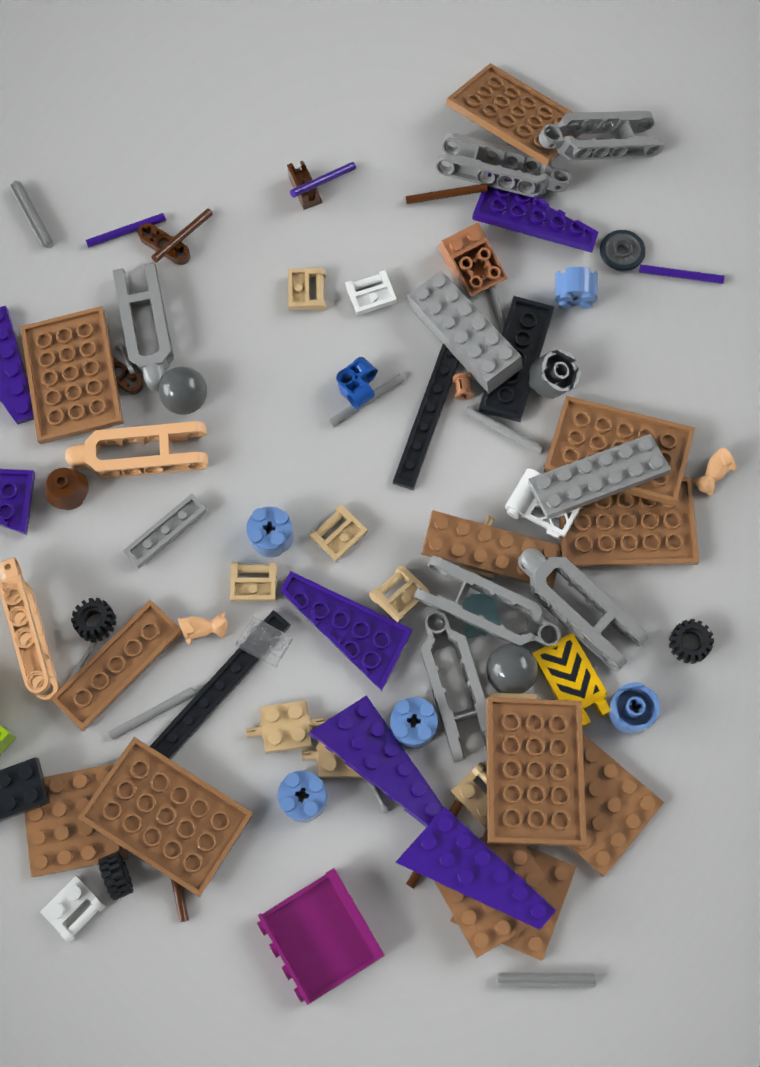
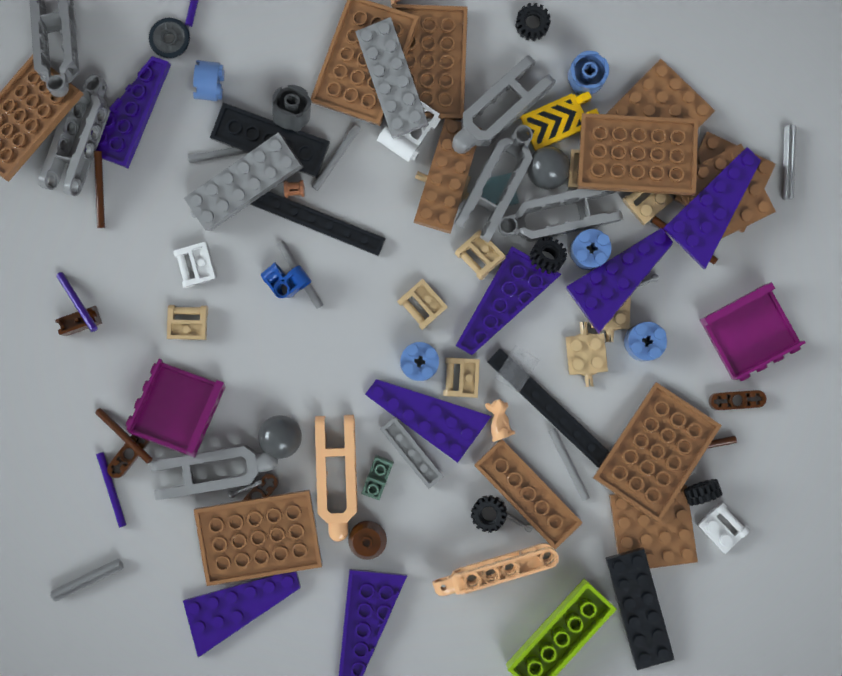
camera: 90 degrees left, 15 degrees up
(136, 496) = (377, 477): none -> sand green slope
(202, 559) = (437, 421): none -> dark purple wing
(211, 281) = (175, 408): none -> magenta panel
(242, 927) = (751, 404): none -> reddish brown beam
(415, 674) = (551, 247): none -> black tyre
(472, 259) = (171, 171): nougat slope -> none

